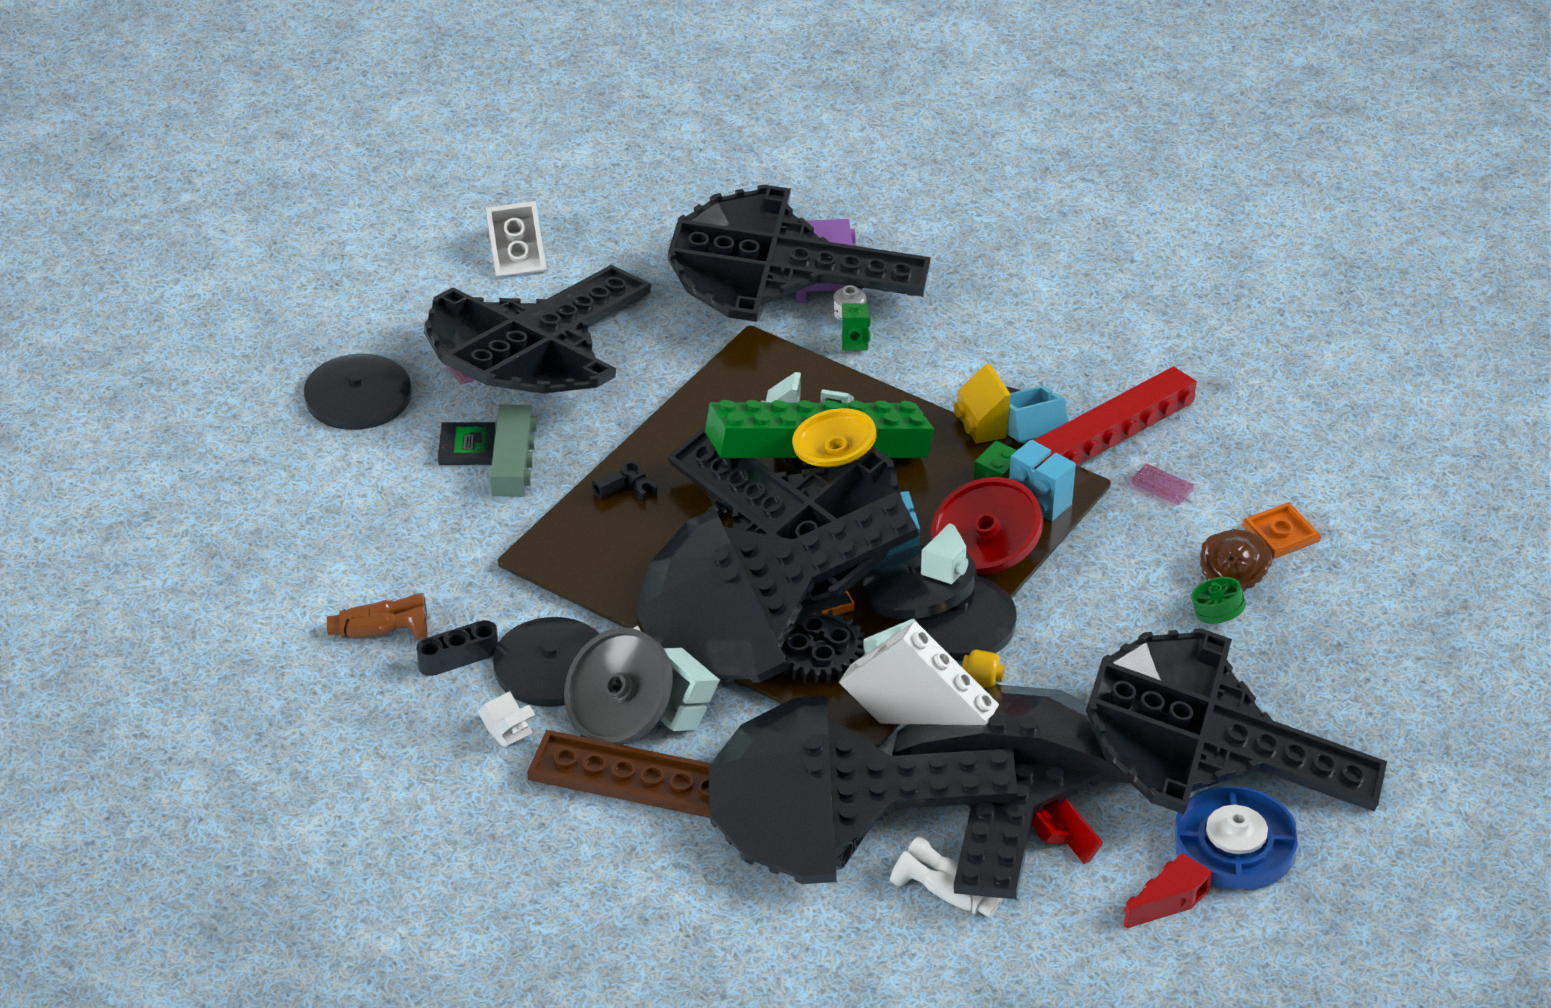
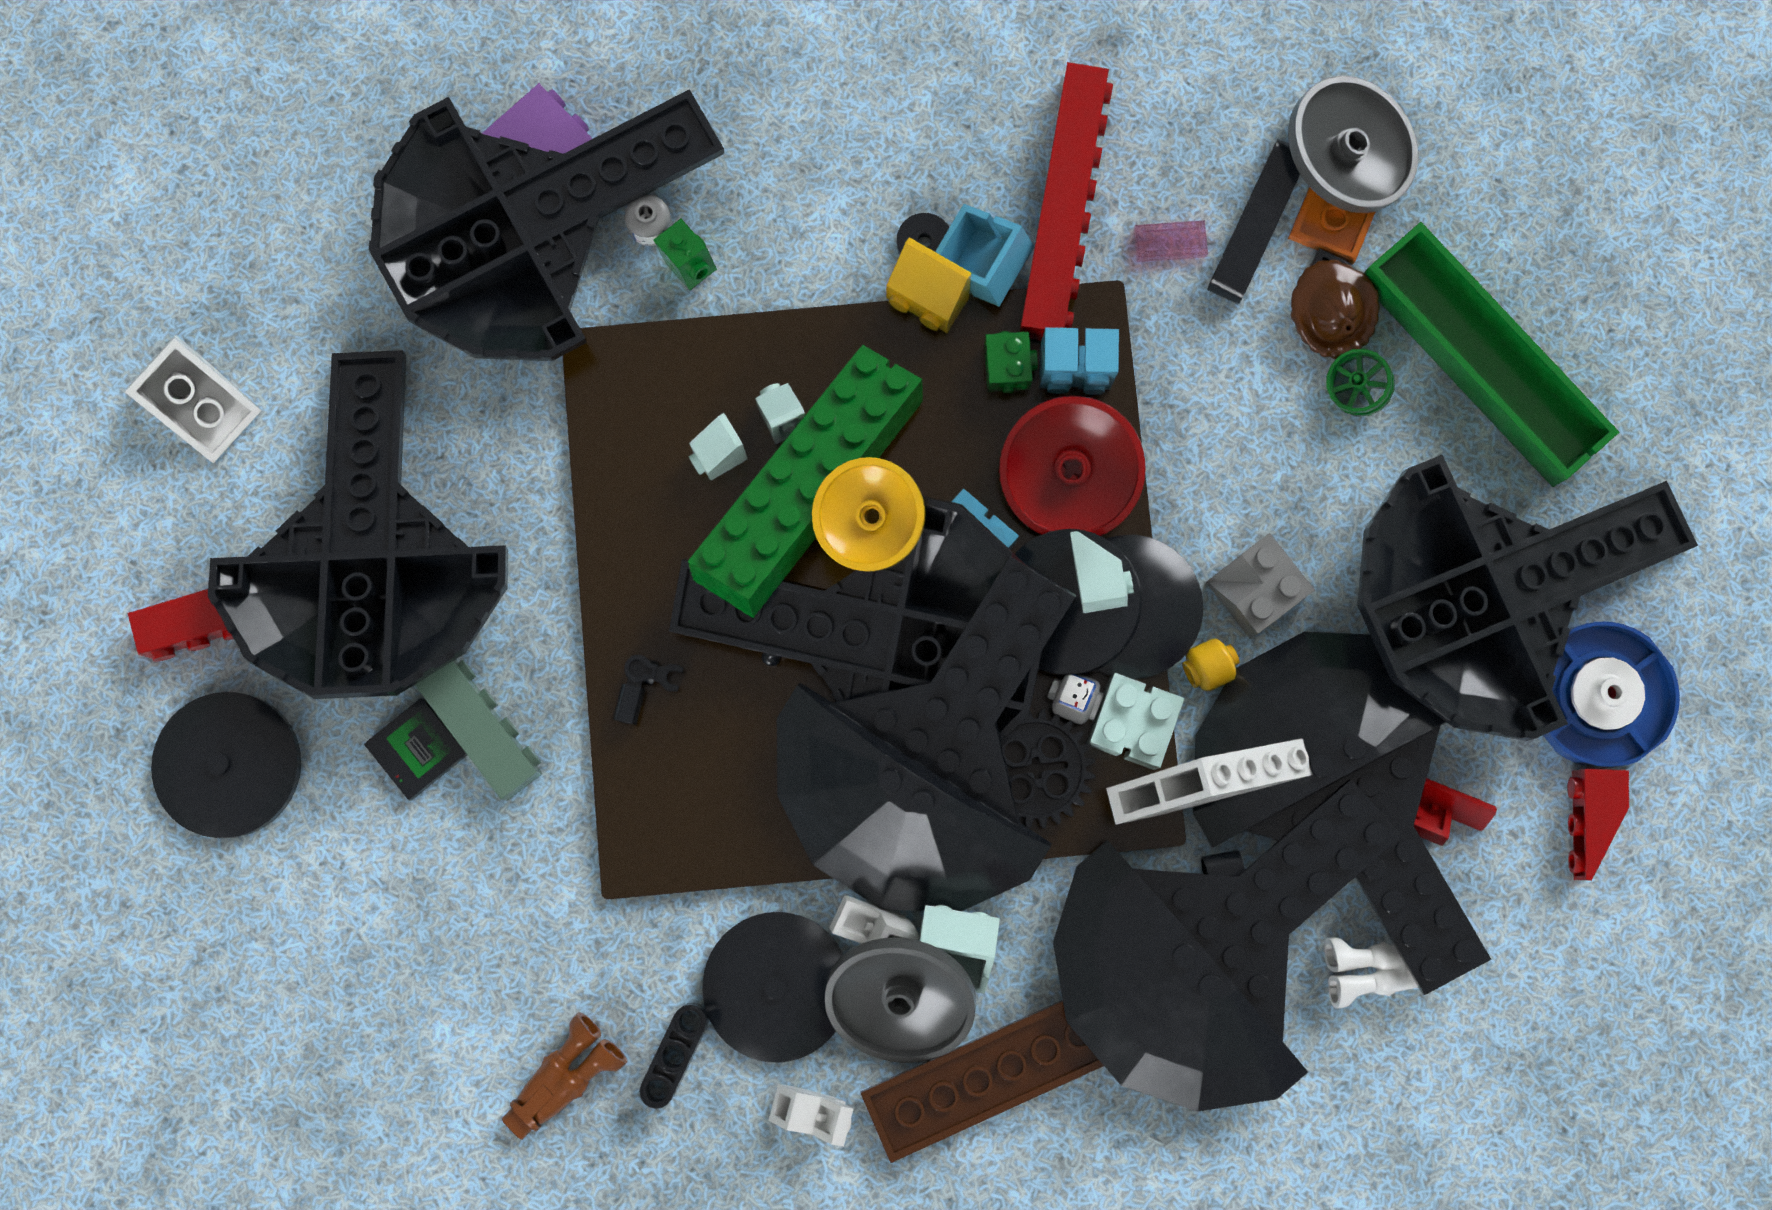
camera: 40 degrees left, 40 degrees up
(399, 320) = (176, 625): none -> red brick
(875, 621) = (1076, 698): none -> head
(1055, 655) = (1260, 586): none -> light grey slope
(1227, 500) = (1256, 225): none -> black beam
(1318, 634) = (1489, 356): none -> green piece
(1323, 493) = (1353, 144): none -> dark grey dish

